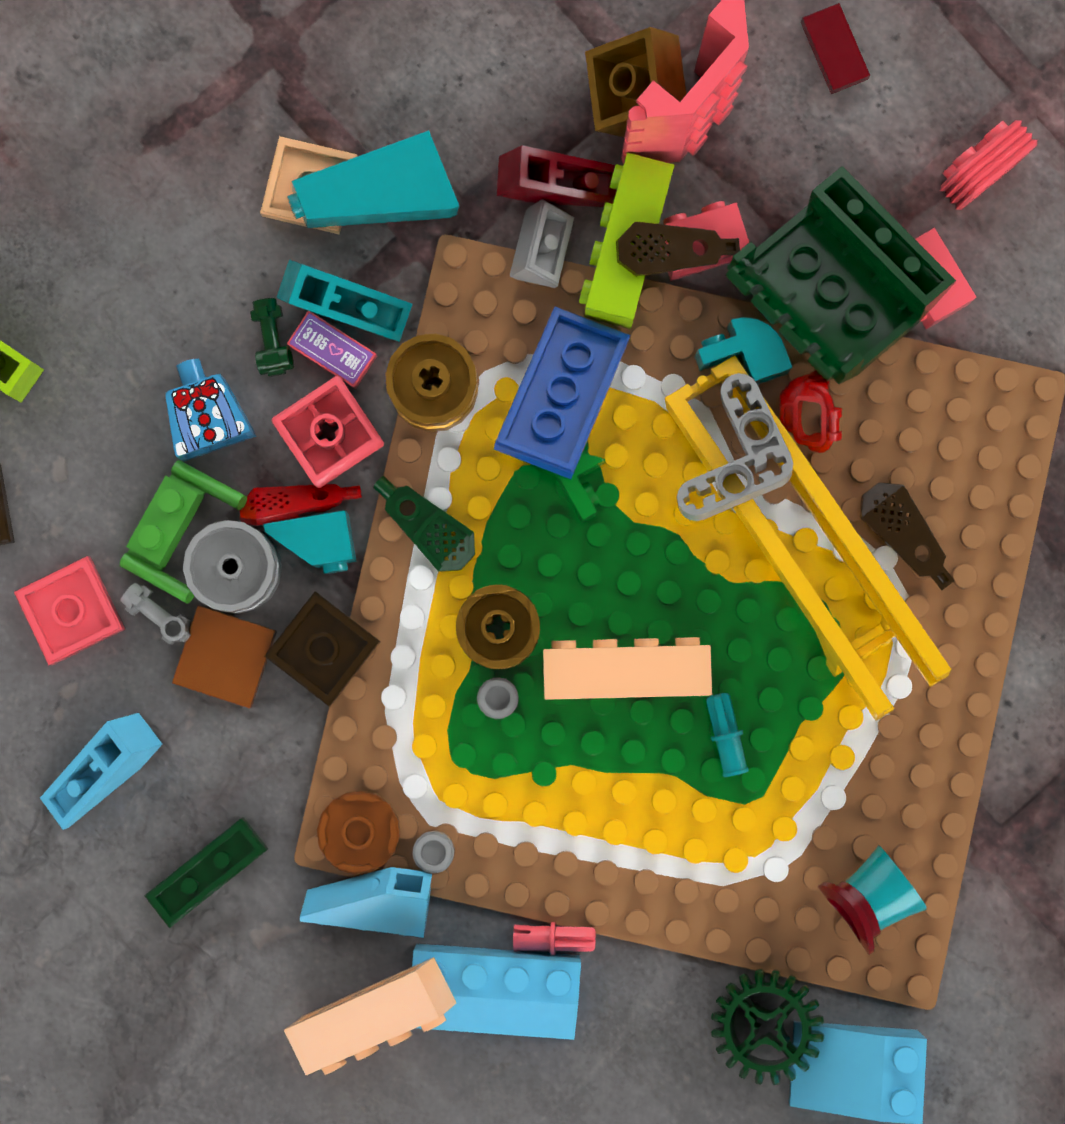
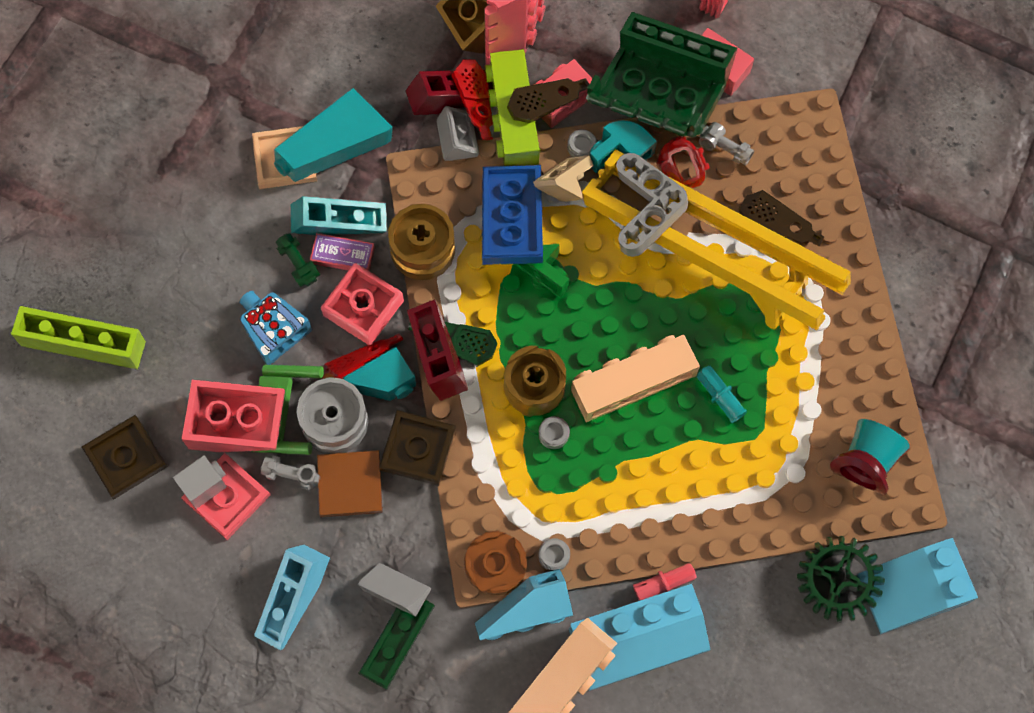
camera: 25 degrees left, 15 degrees down
(40, 587) = (201, 481): none -> light grey brick
(108, 521) = (232, 417): none -> coral slope
(225, 814) = (395, 588): none -> light grey slope
(392, 537) = (437, 351): none -> dark red slope
(579, 207) = (474, 92): none -> red piece
(648, 366) = (562, 179): none -> tan slope
(696, 324) = (580, 143): none -> light grey tile
(872, 385) = (714, 136): none -> light grey bar

